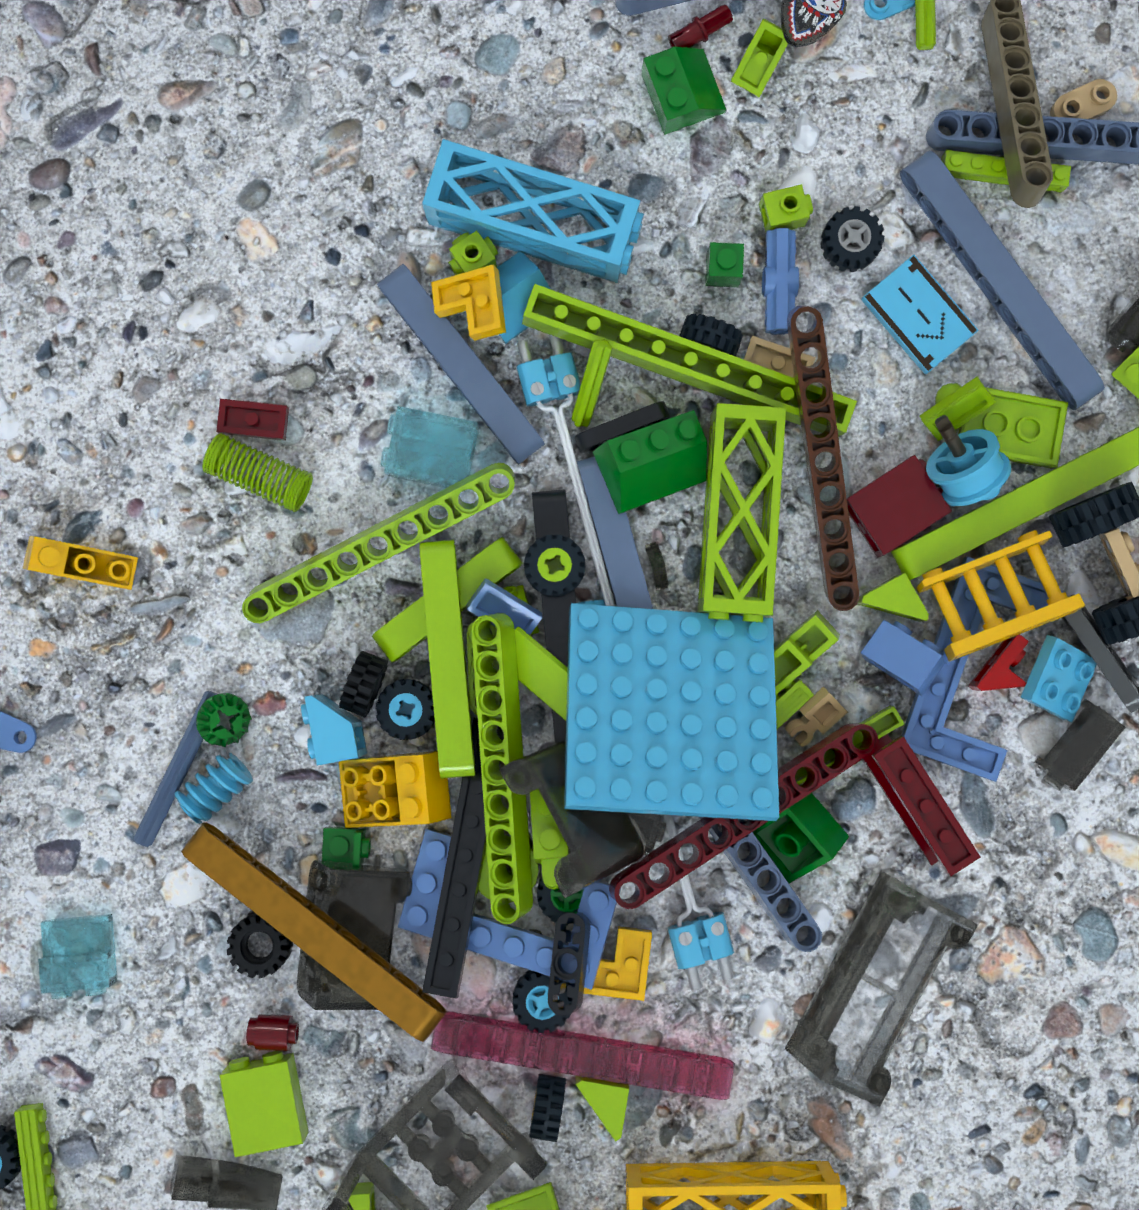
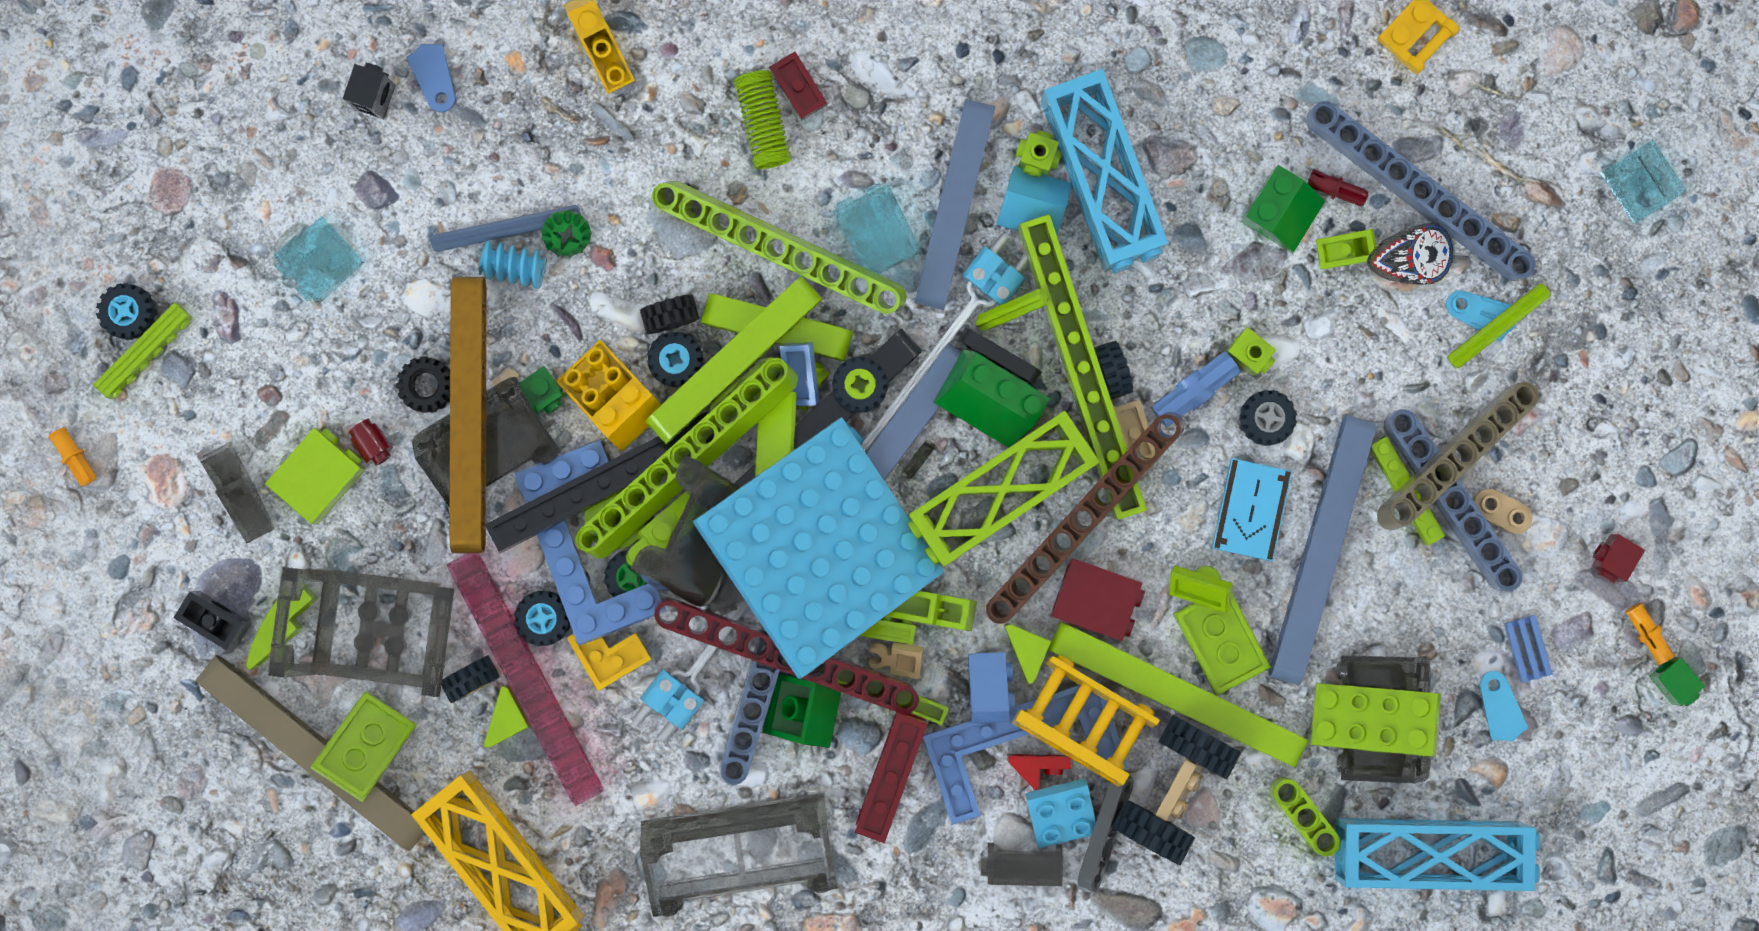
camera: 50 degrees right, 0 degrees up
(334, 731) = (620, 319): medium azure slope -> none
(477, 294) = (1011, 177): yellow plate -> none
(576, 989) = (582, 626): black beam -> none
(724, 264) = (1175, 339): green brick -> none
(967, 465) = (1162, 625): medium azure wheel -> none

